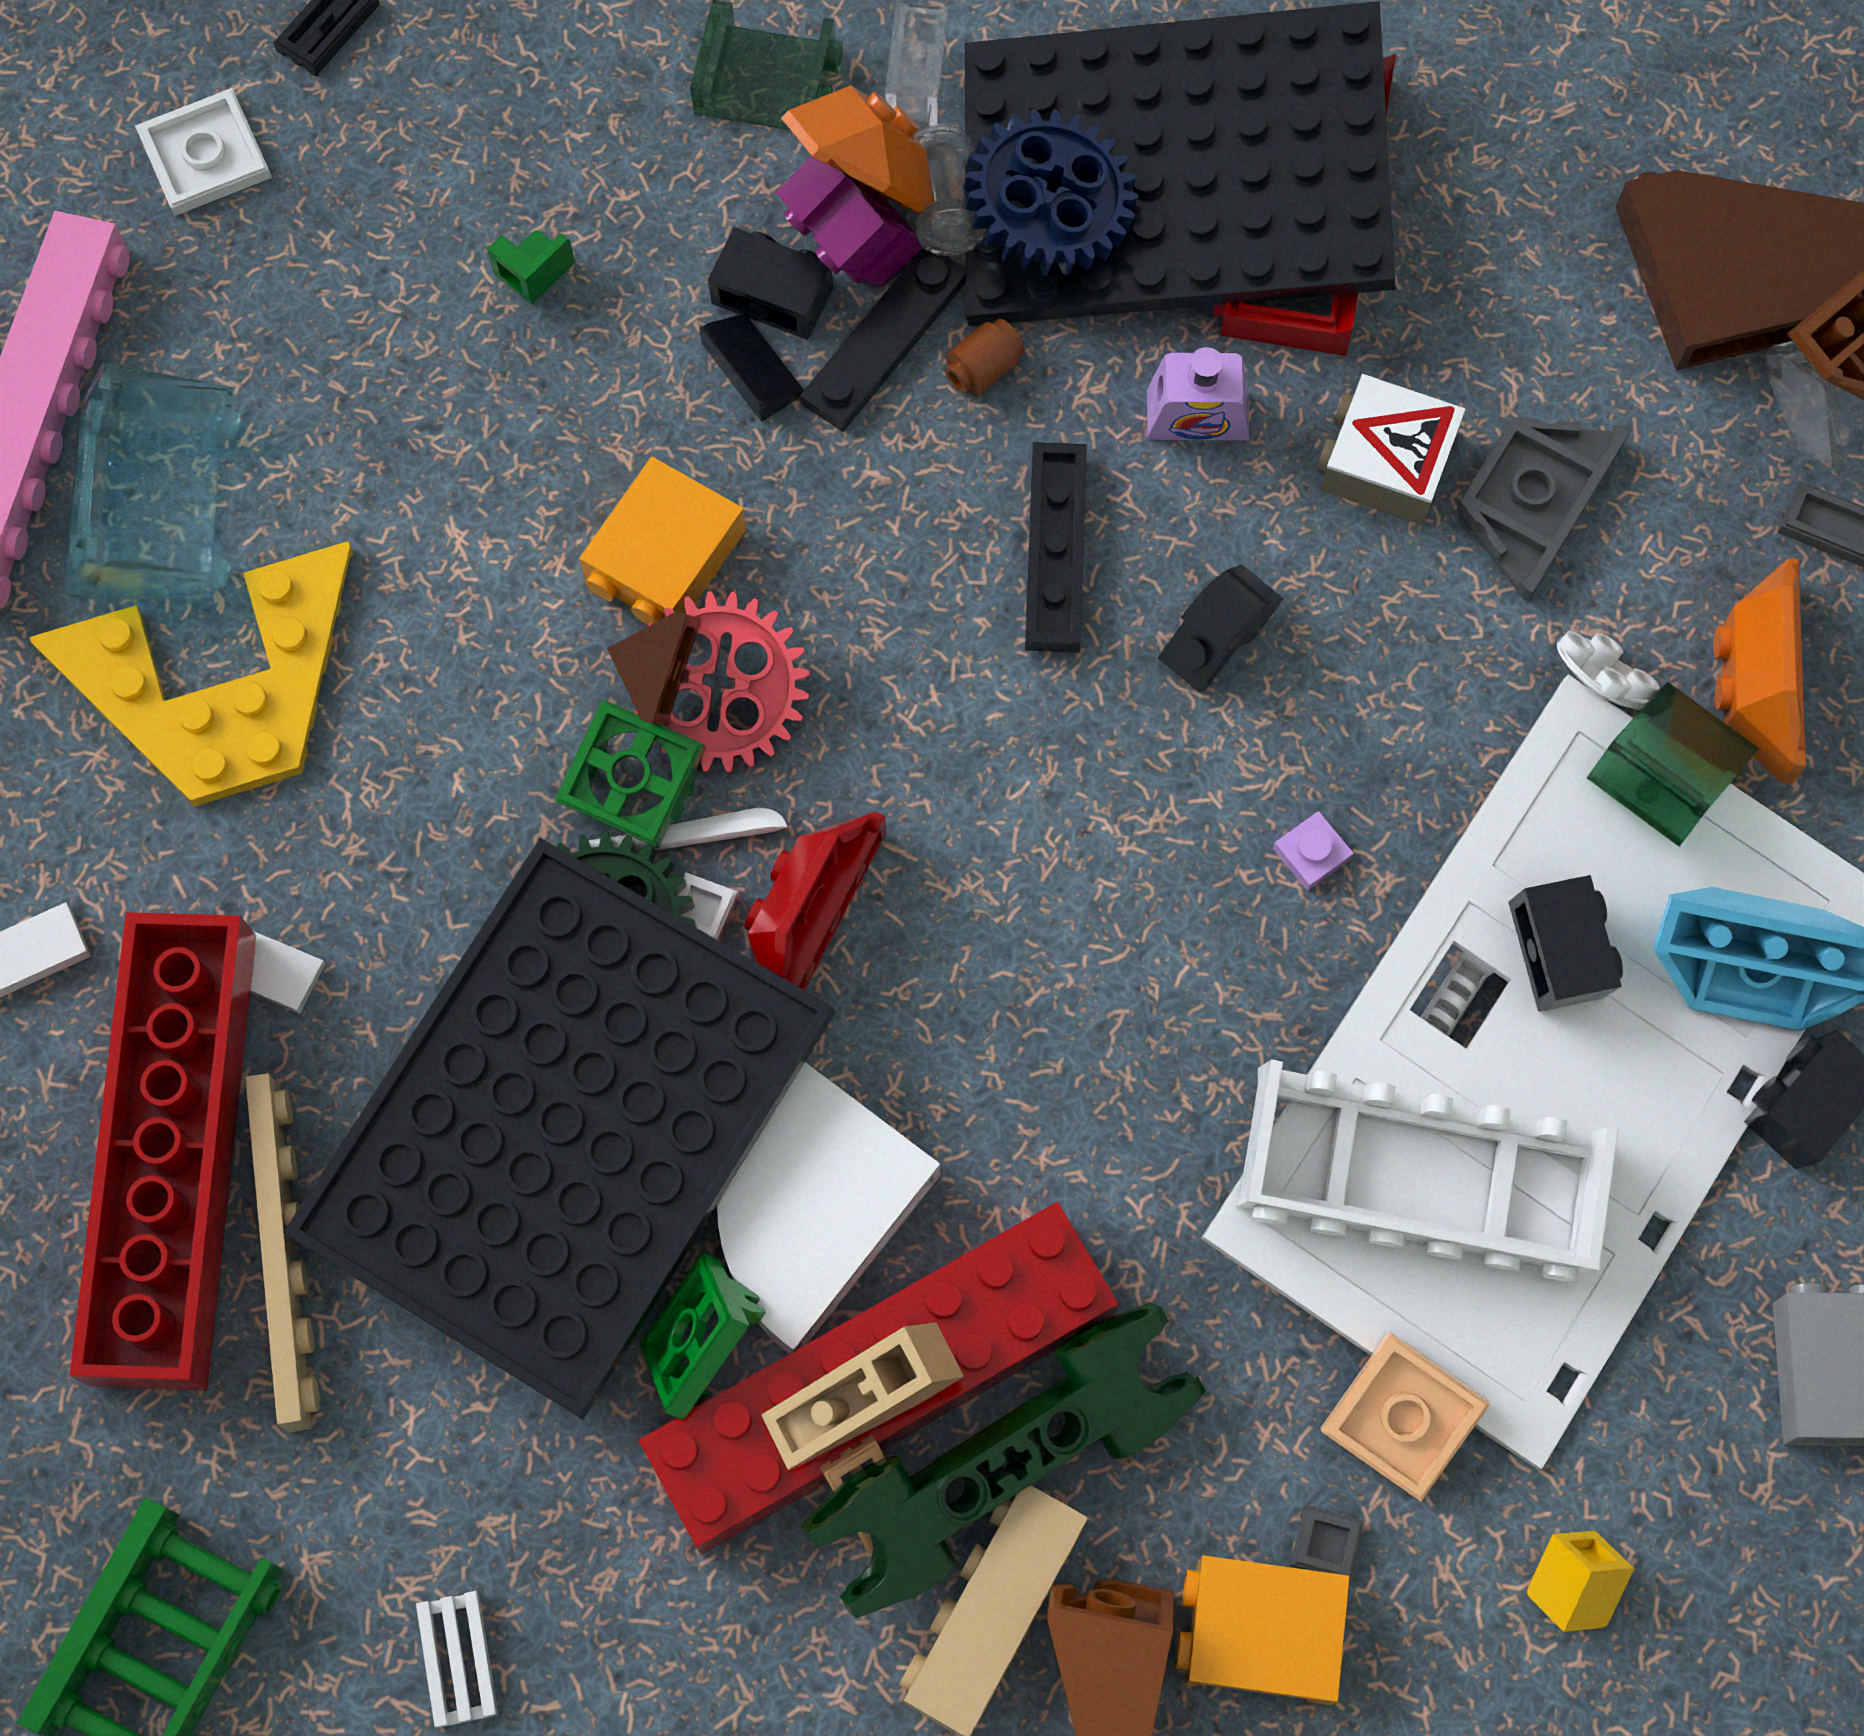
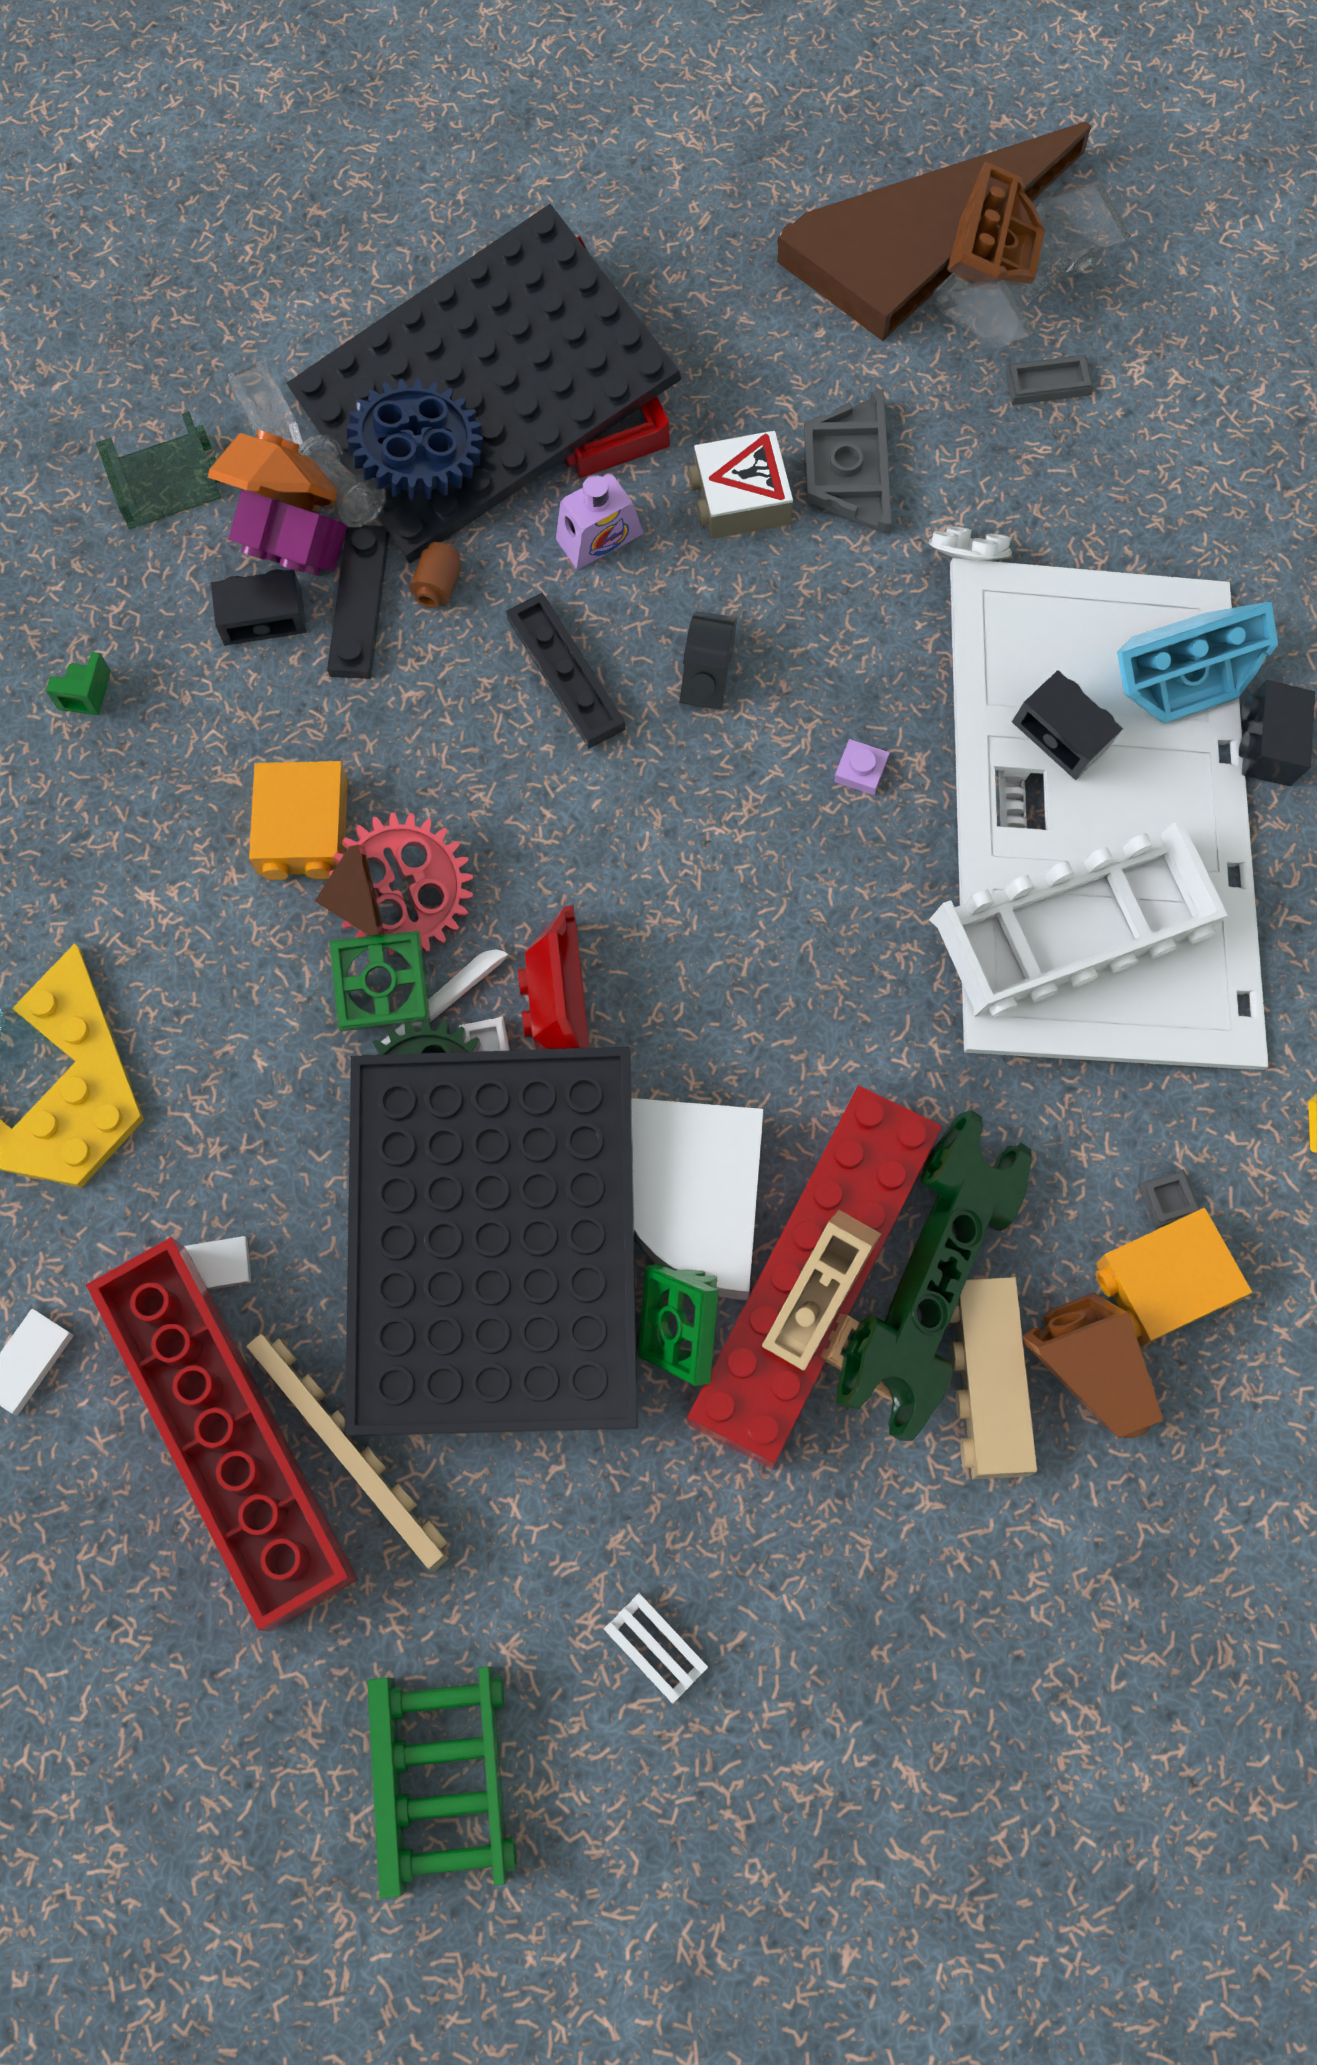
camera: 30 degrees left, 0 degrees up
(750, 365) = (279, 670): black slope -> none
(1405, 1416) = (1165, 1085): light nougat tile -> none
(1672, 763) = (1055, 576): clear green panel -> none
(1765, 673) = (1071, 491): orange wedge -> none

